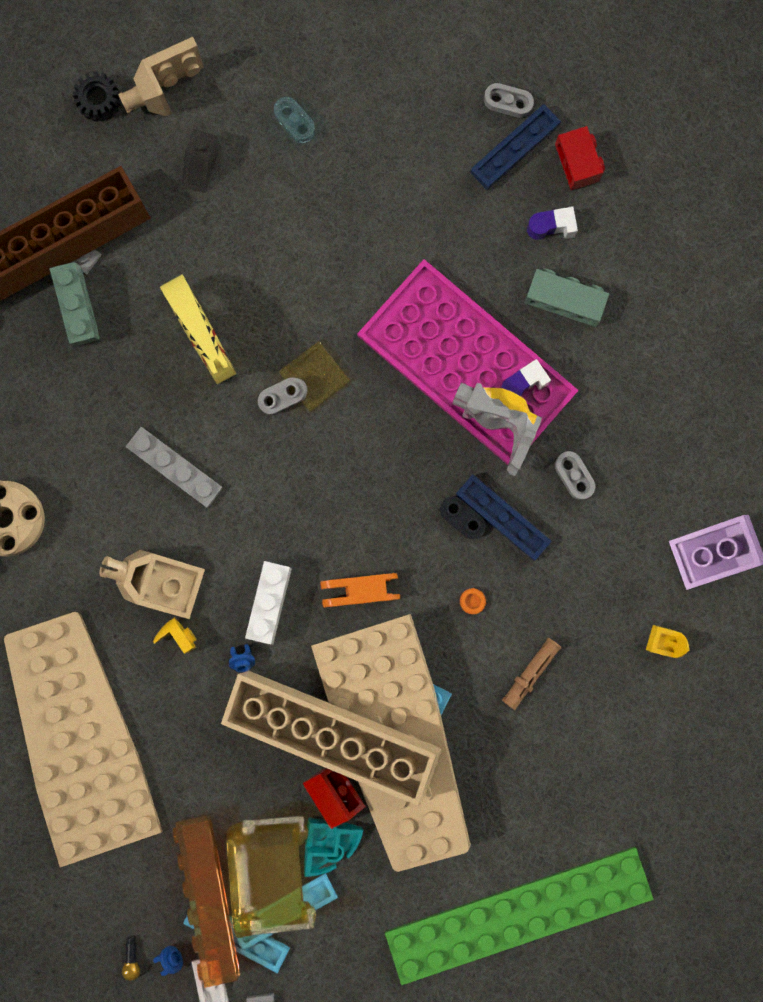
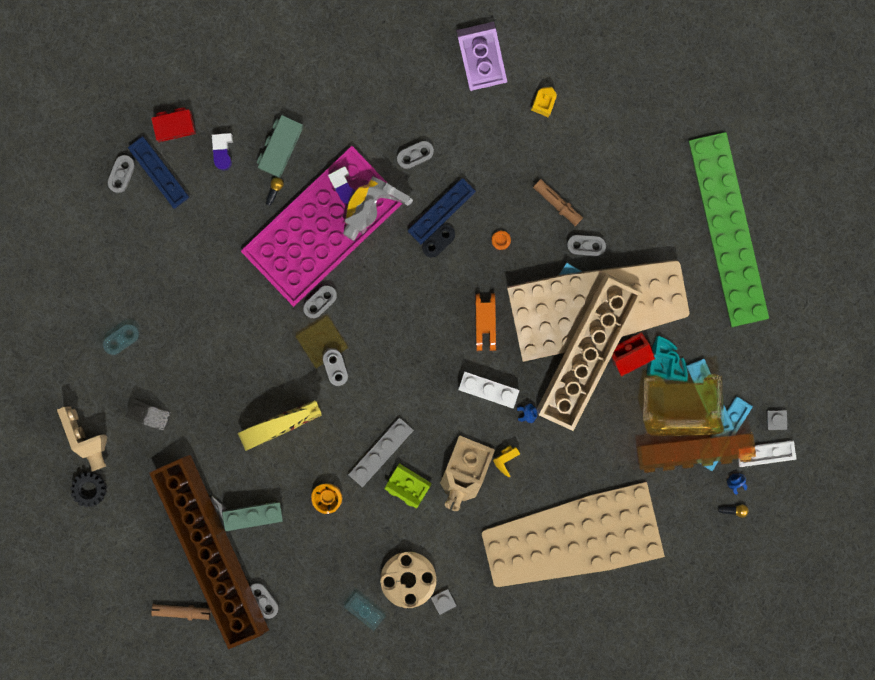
camera: 85 degrees left, 5 degrees up
(110, 404) = (327, 497): none -> light orange helmet
(130, 506) = (407, 486): none -> lime bracket
(367, 369) = (320, 302): none -> light grey plate
(478, 717) = (586, 245): none -> light grey plate
(515, 298) = (276, 185): none -> piece

